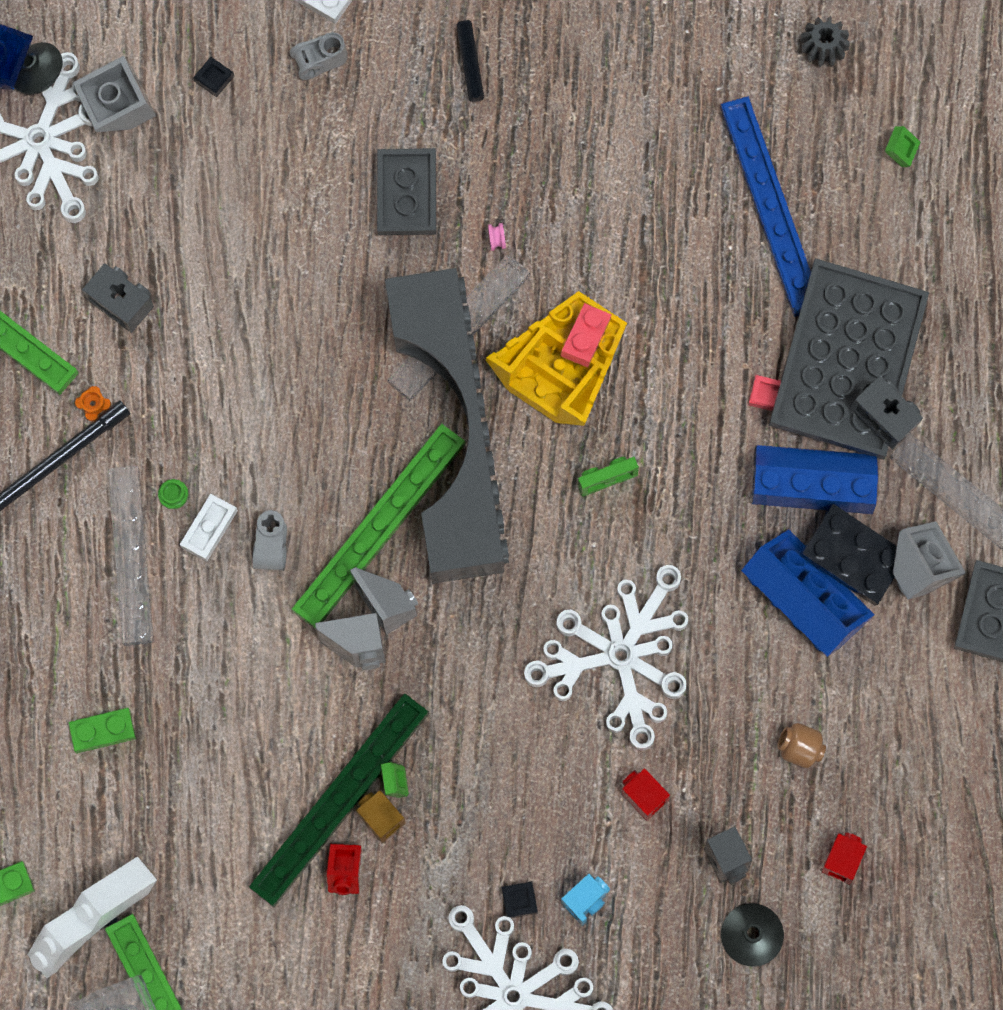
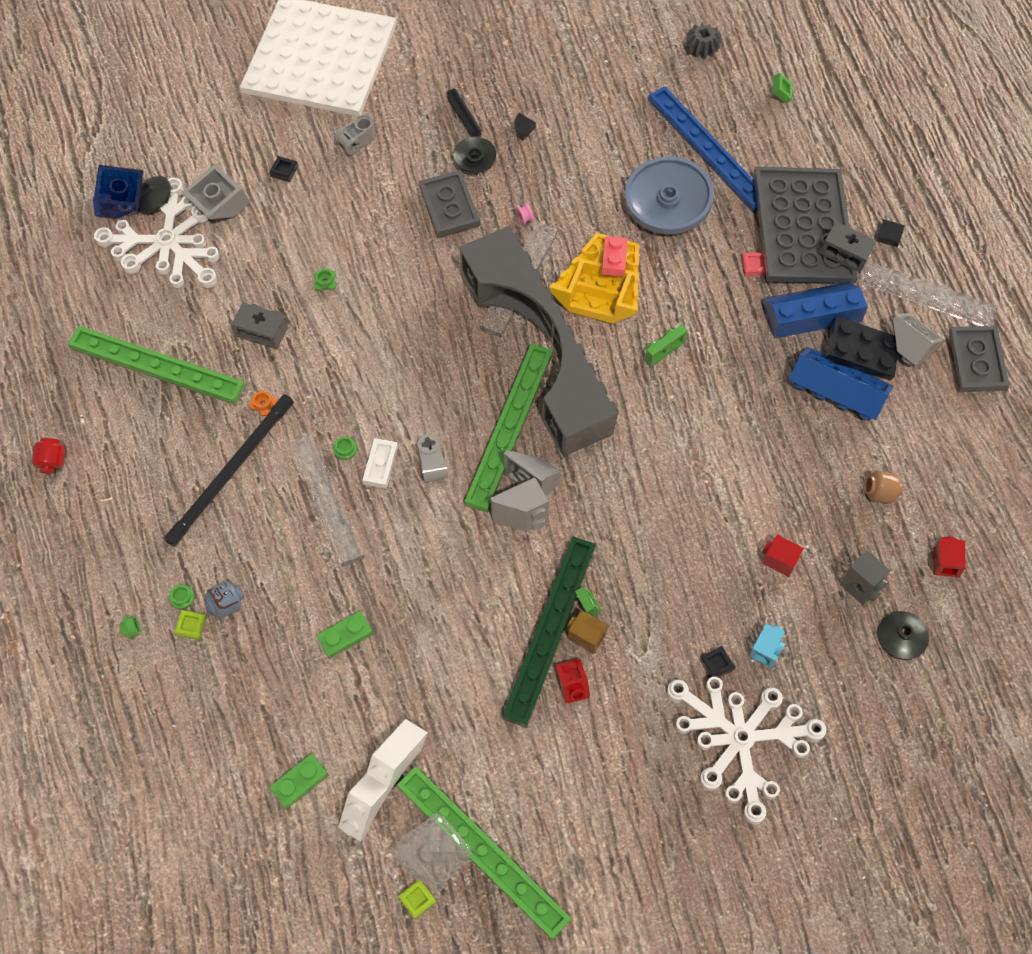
camera: 20 degrees left, 10 degrees down
(214, 248) = (325, 274): none -> bright green plate
(460, 118) = (474, 154): none -> pearl dark grey dish
(541, 102) = (524, 126): none -> black tile
(639, 624) = (728, 440): white plant -> none
(689, 266) = (669, 195): none -> sand blue dish
(959, 402) = (890, 233): none -> black tile

